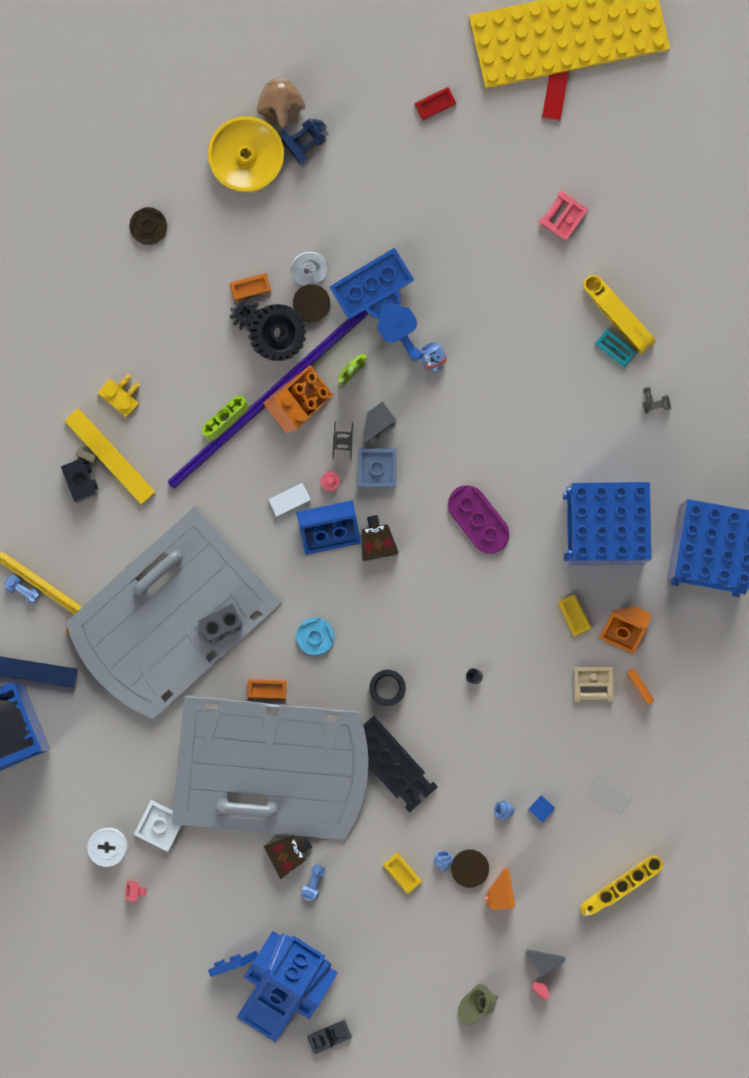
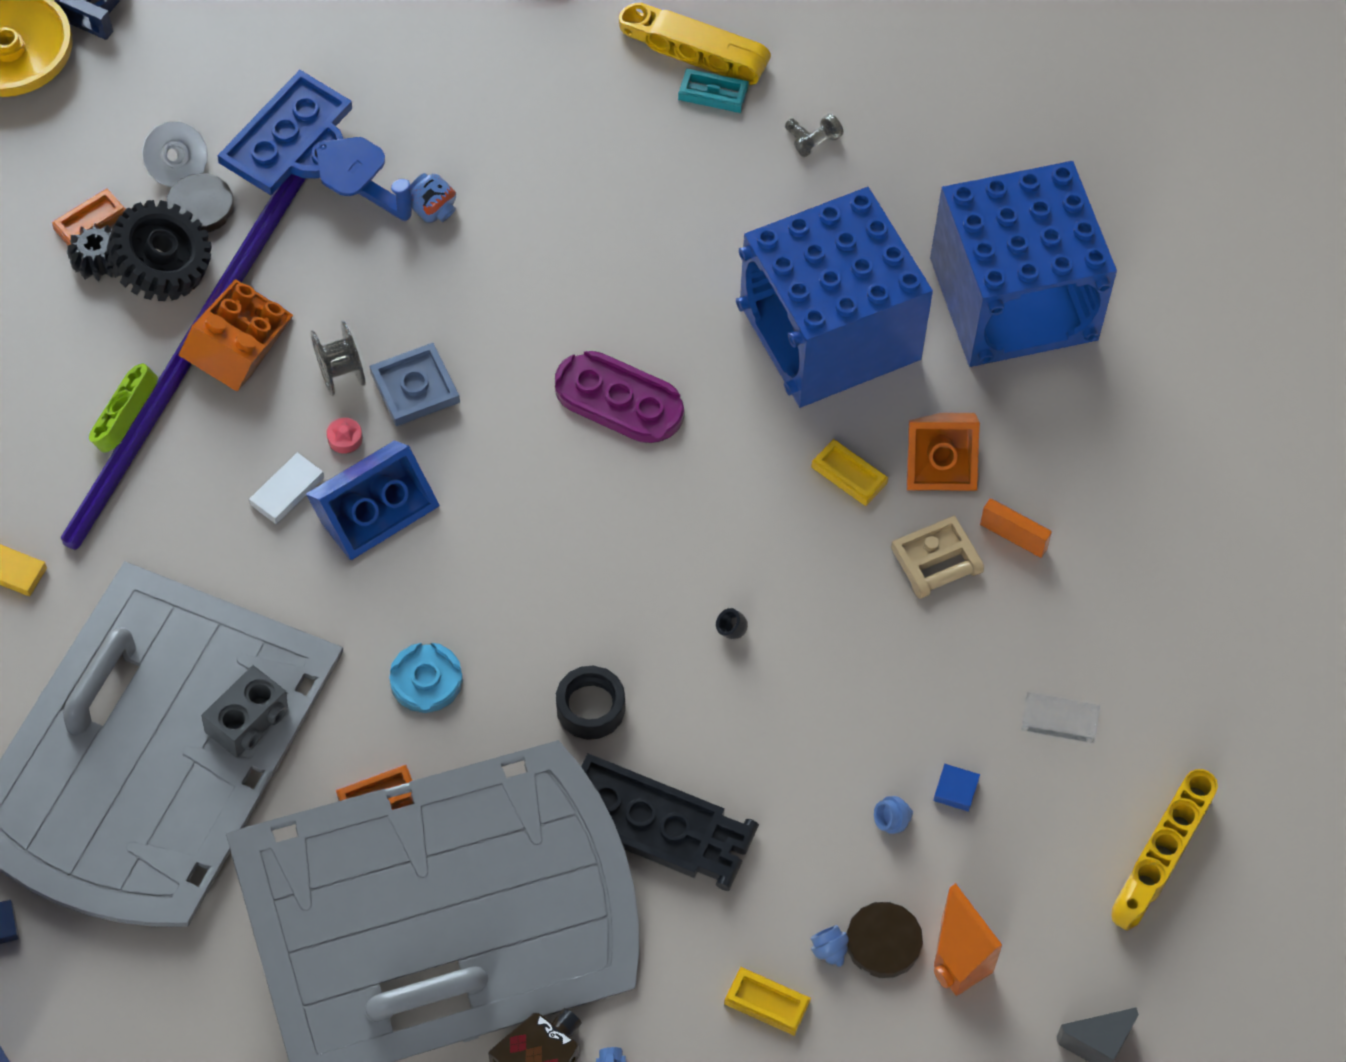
camera: 25 degrees left, 25 degrees down
(351, 369) = (306, 252): lime tile -> none
(377, 421) = (385, 317): dark grey slope -> none
(377, 540) = (466, 487): dark brown torso -> none

